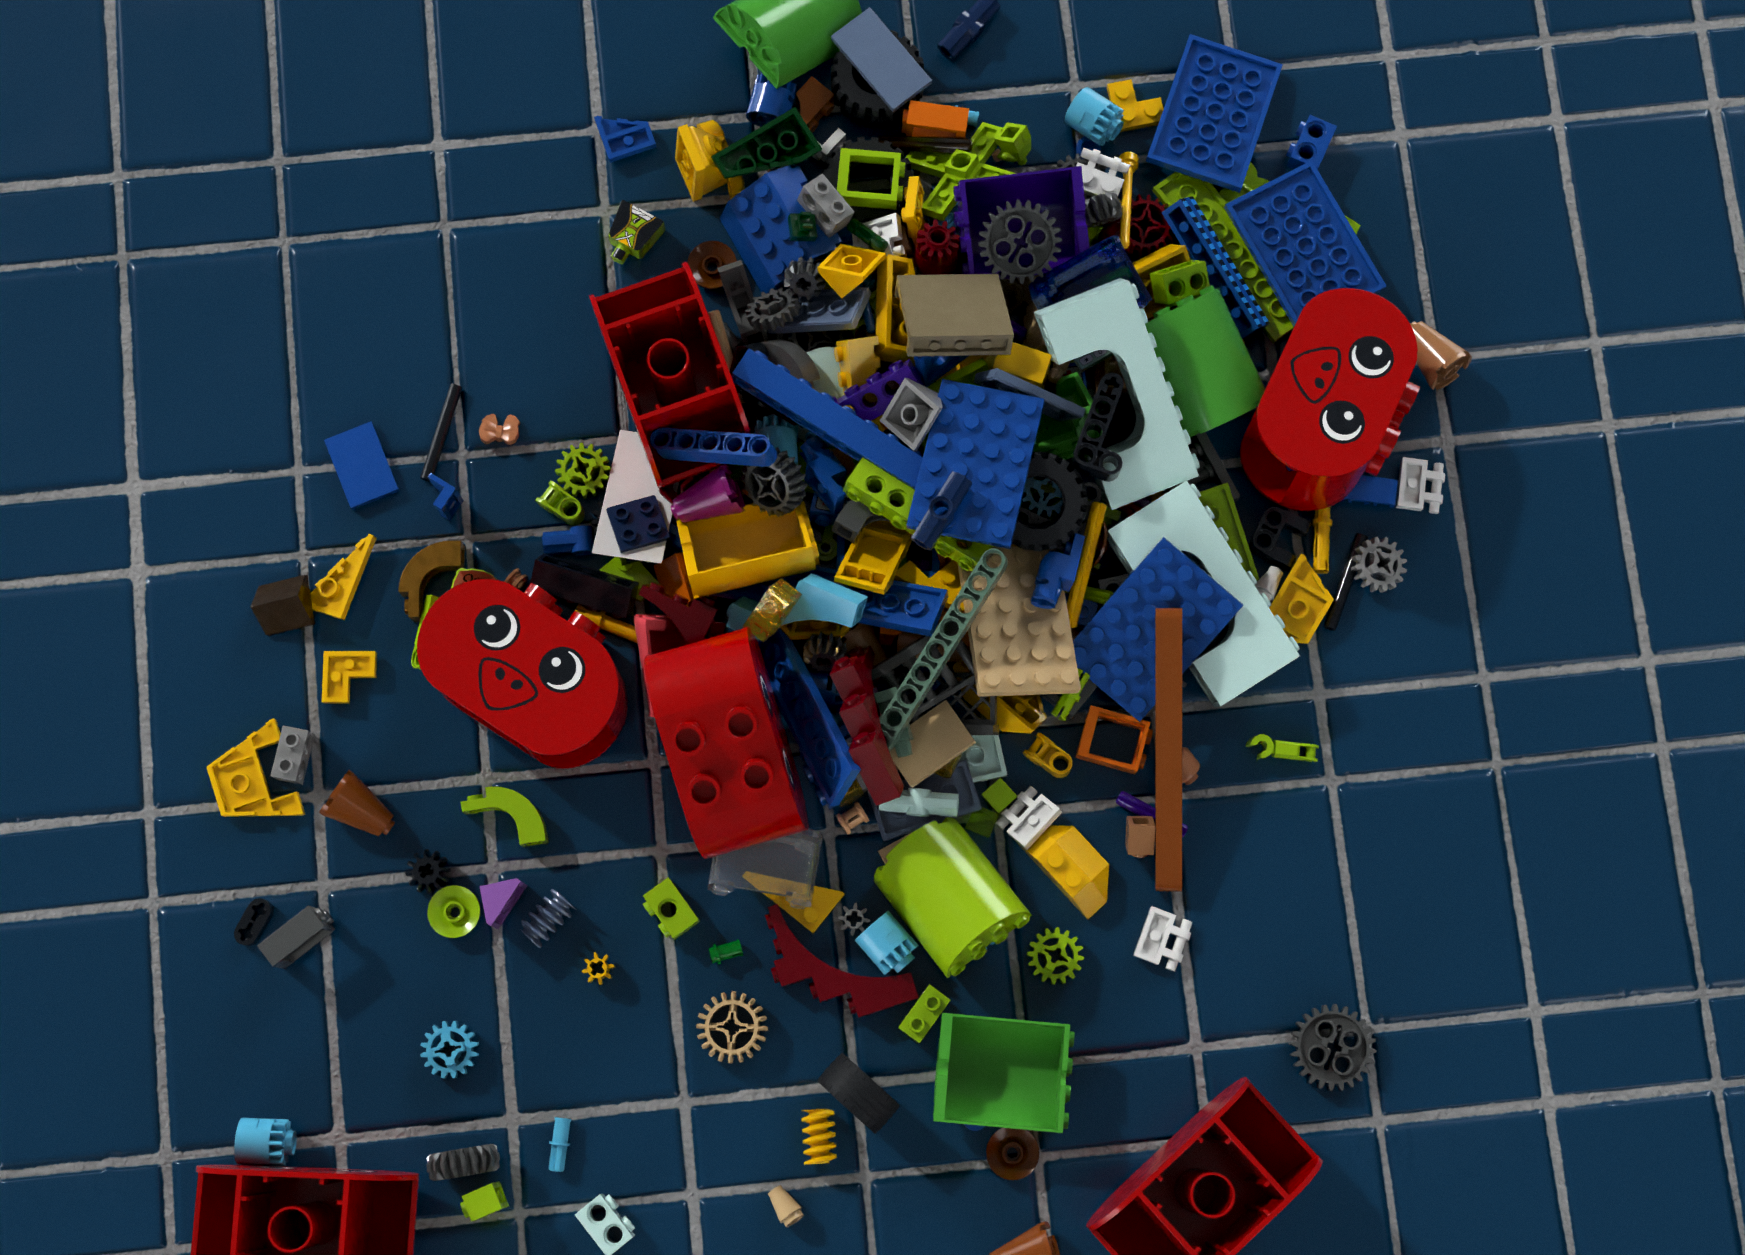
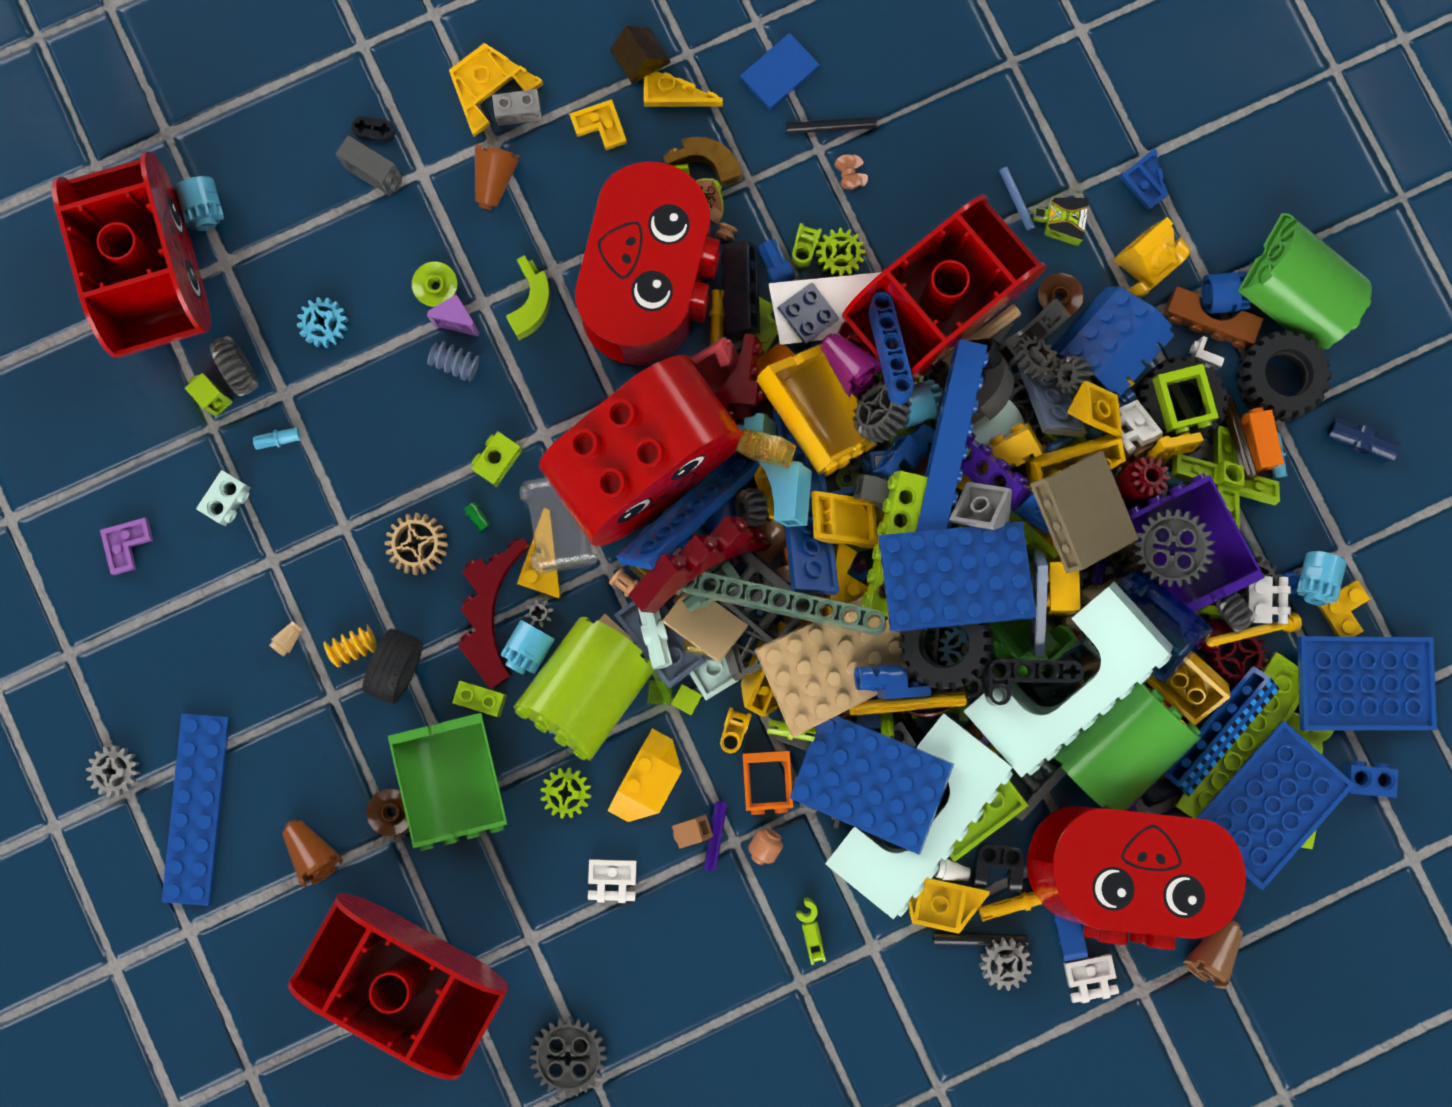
camera: 70 degrees right, 5 degrees up
(426, 862) = (454, 245): black gear -> none
(448, 500) = (772, 150): blue panel -> none
(593, 272) = (1017, 199): none -> medium blue bar
(605, 966) = (425, 411): yellow gear -> none
(772, 146) = (1182, 304): dark green wedge -> none
(802, 226) = (1118, 356): dark green tile -> none
(829, 207) = (1145, 369): light grey brick -> none
(867, 235) = (1133, 415): dark green axle -> none
(881, 59) = (1299, 371): sand blue tile -> none
(949, 497) = (884, 557): dark blue piece -> none
(1014, 144) = (1269, 515): lime piece -> none
(1033, 821) = (672, 735): white plate -> none
(1168, 749) = (773, 830): dark orange beam -> none
(1179, 277) = (1198, 701): lime brick -> none

